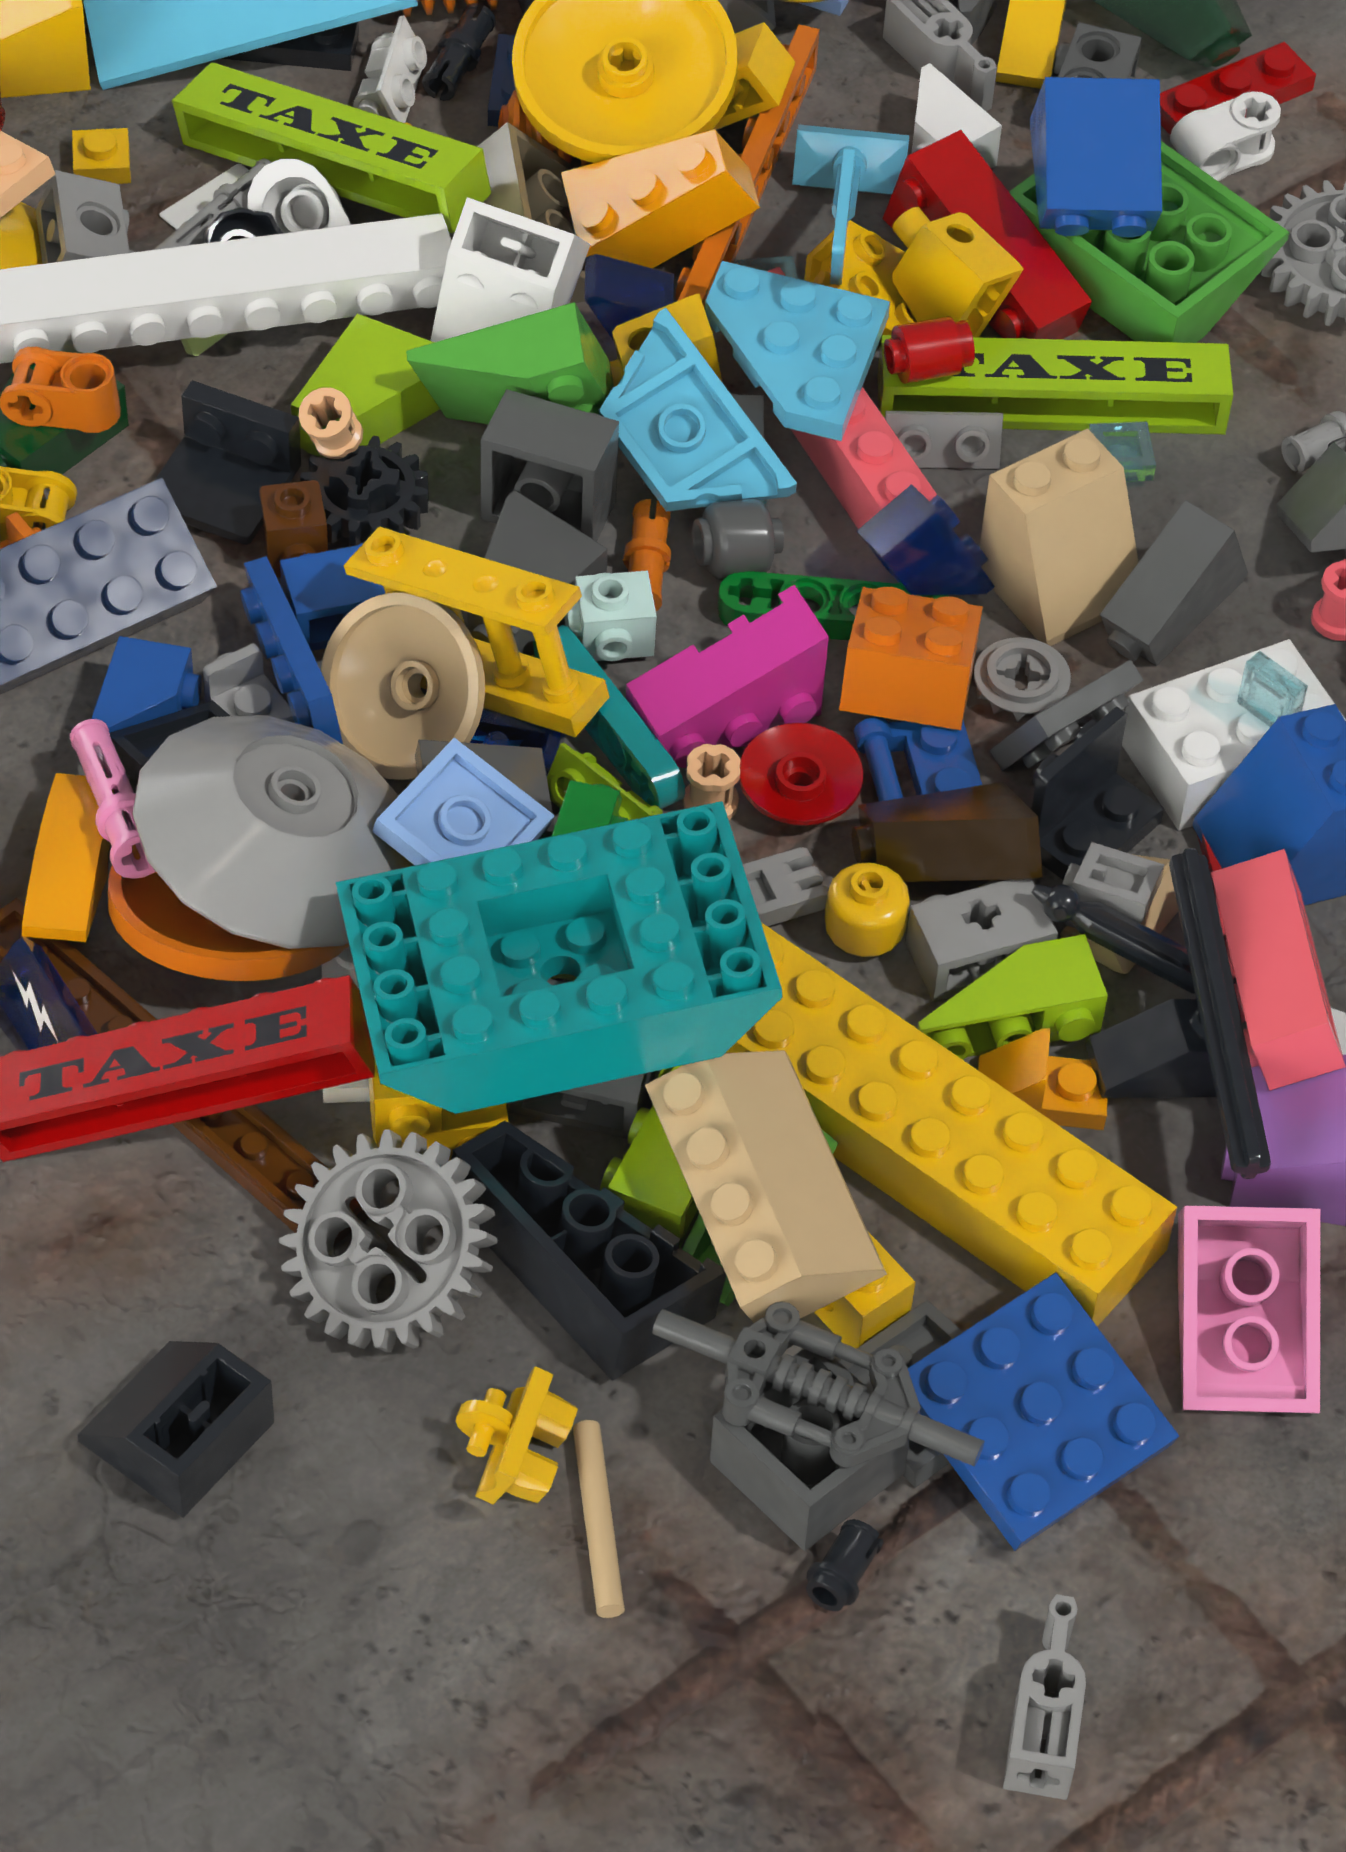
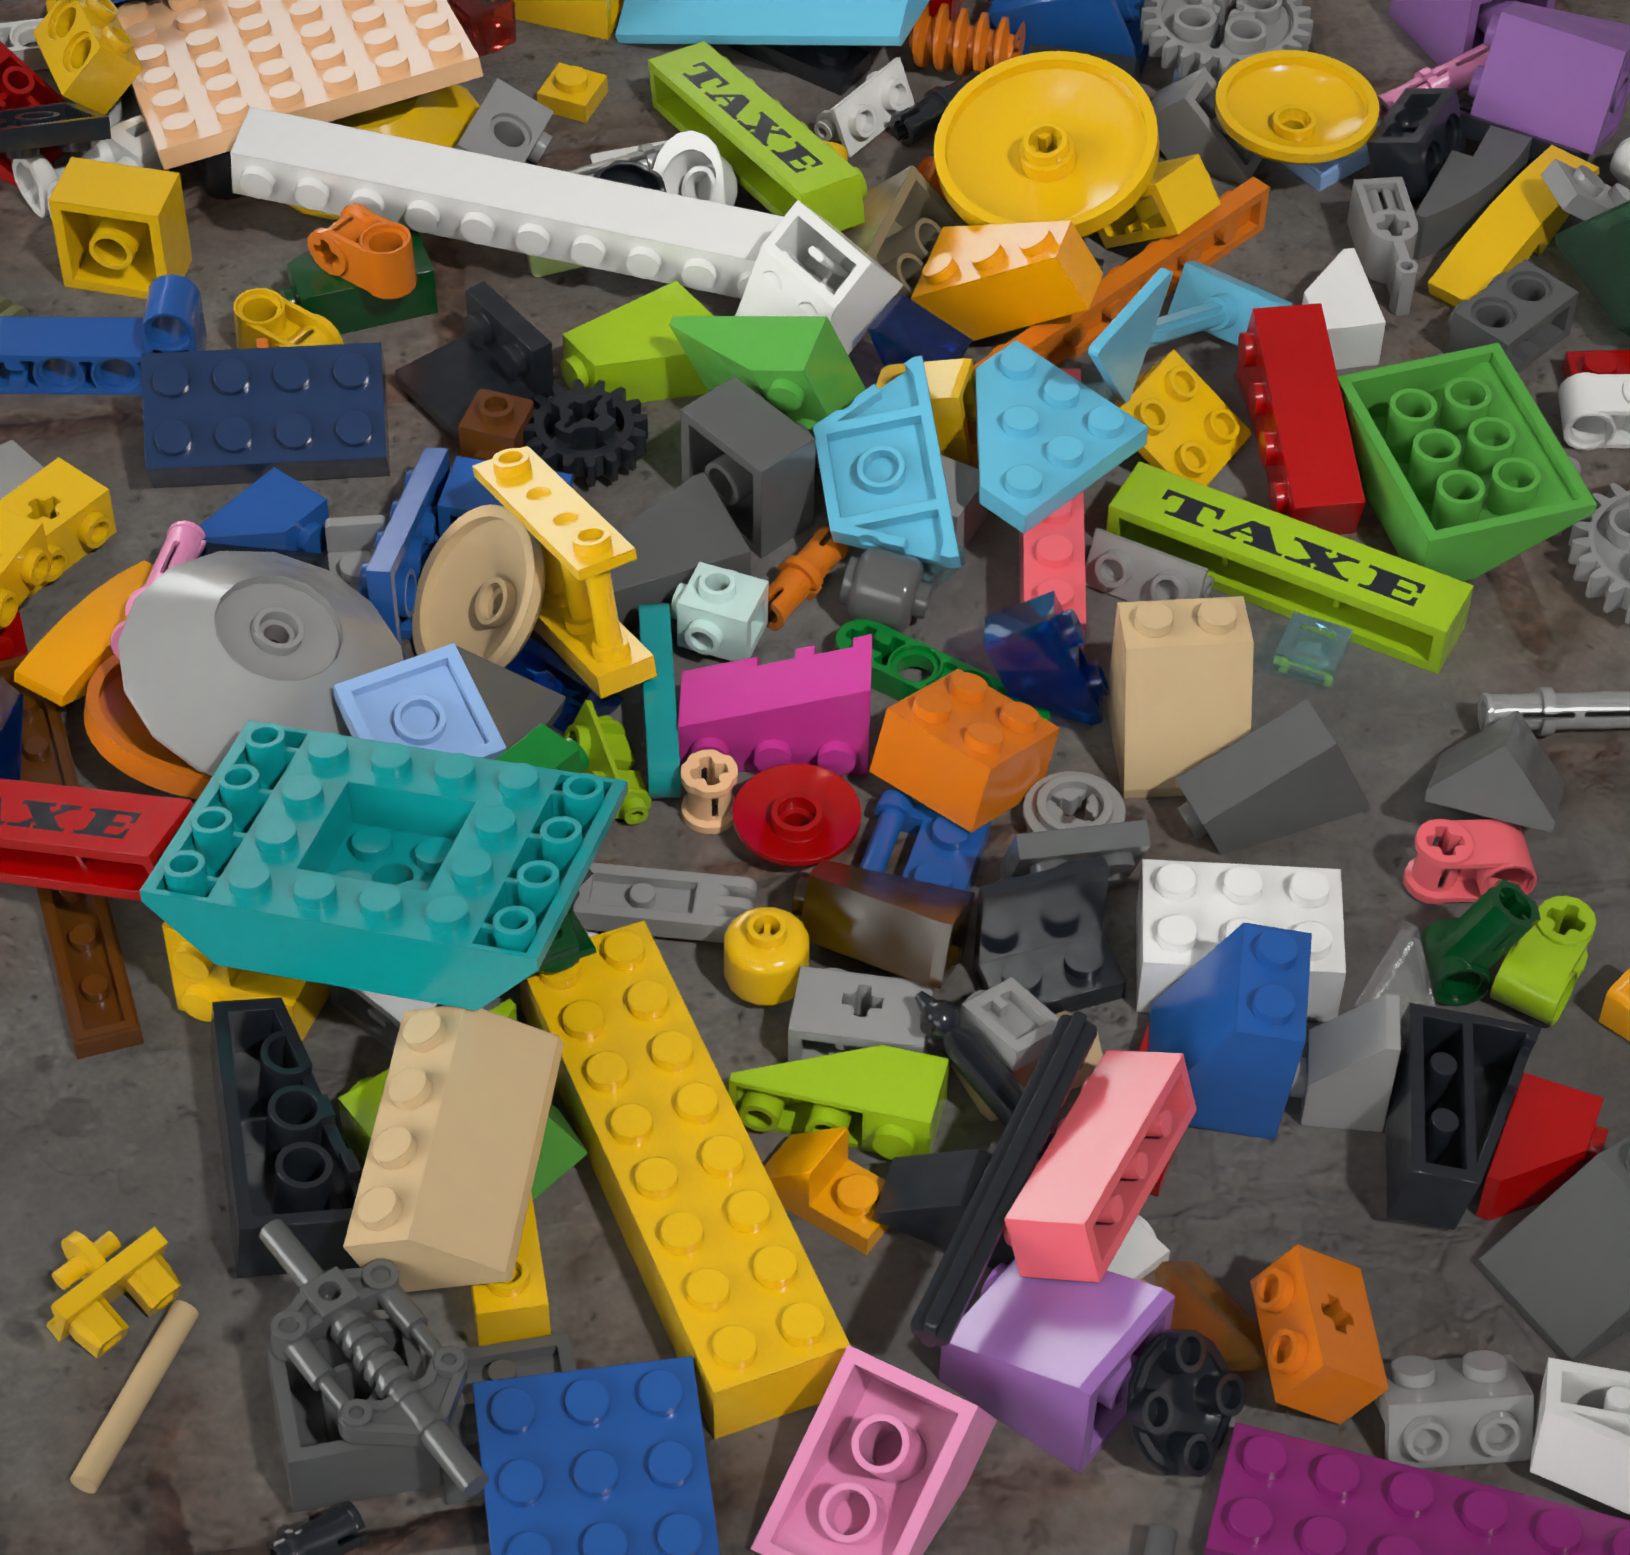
camera: 30 degrees right, 5 degrees down
(325, 407) = (579, 351): light nougat bush -> none
(347, 1284) = (113, 1062): light grey gear -> none
(929, 349) = (1162, 484): red brick -> none
(952, 269) = (1237, 429): yellow torso -> none
(1097, 155) = (1431, 364): blue slope -> none
(1270, 689) = (1265, 896): clear light blue tile -> none

